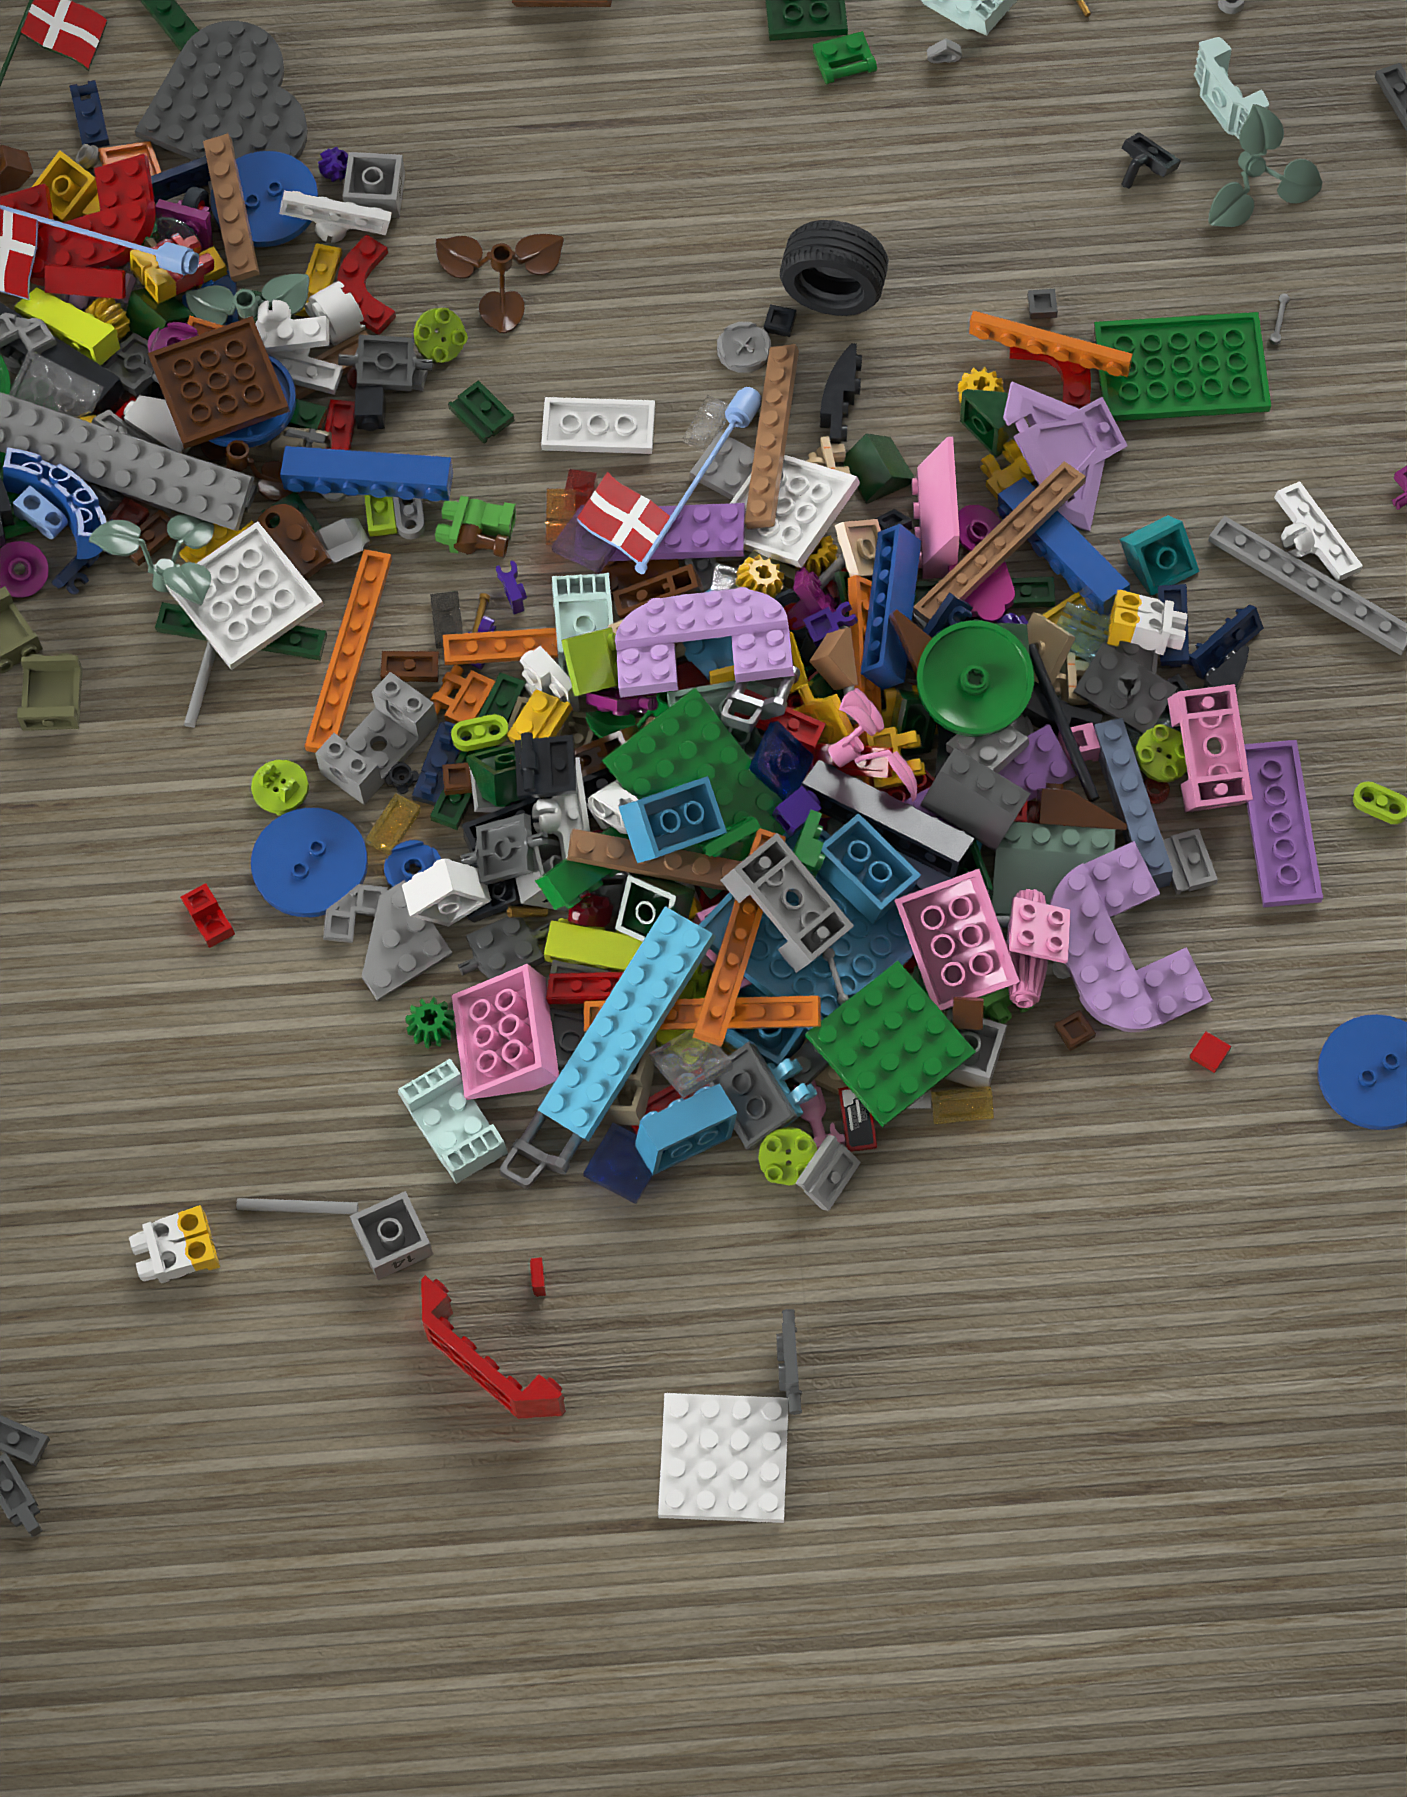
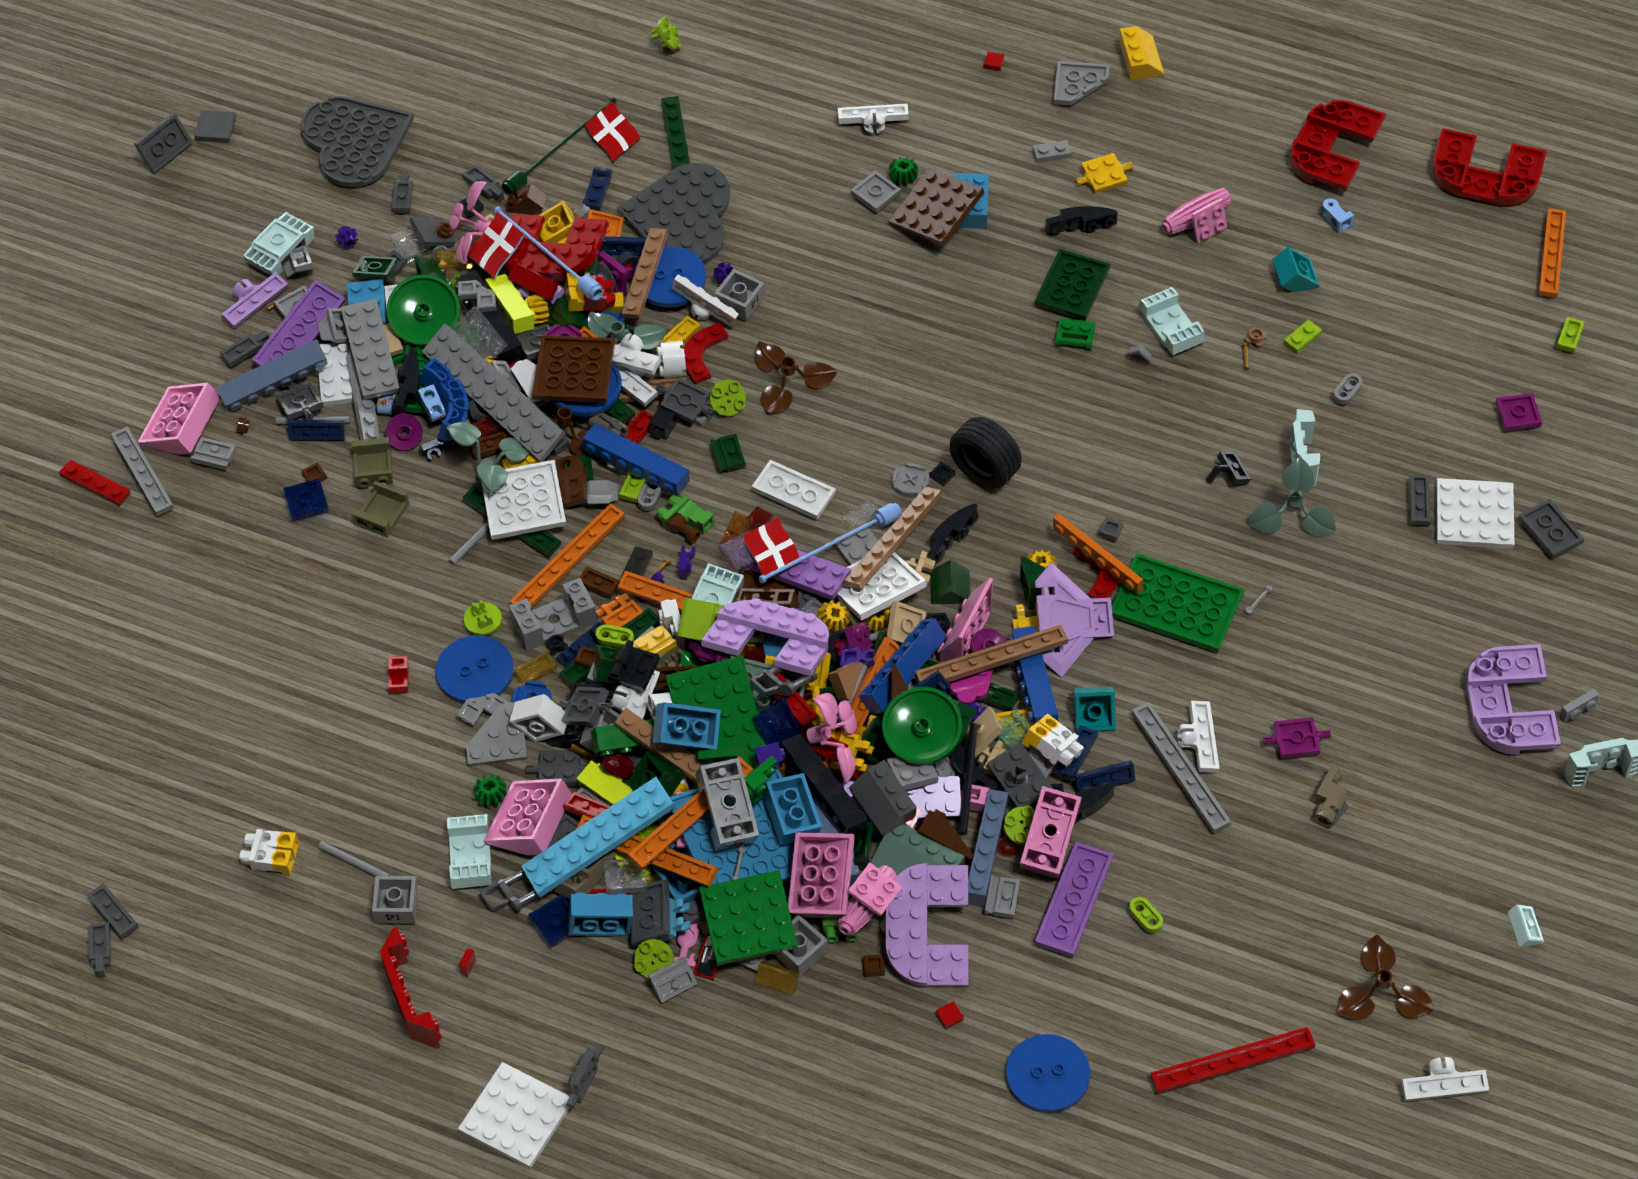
camera: 25 degrees right, 10 degrees down
(968, 1013) = (805, 920): reddish brown tile -> none

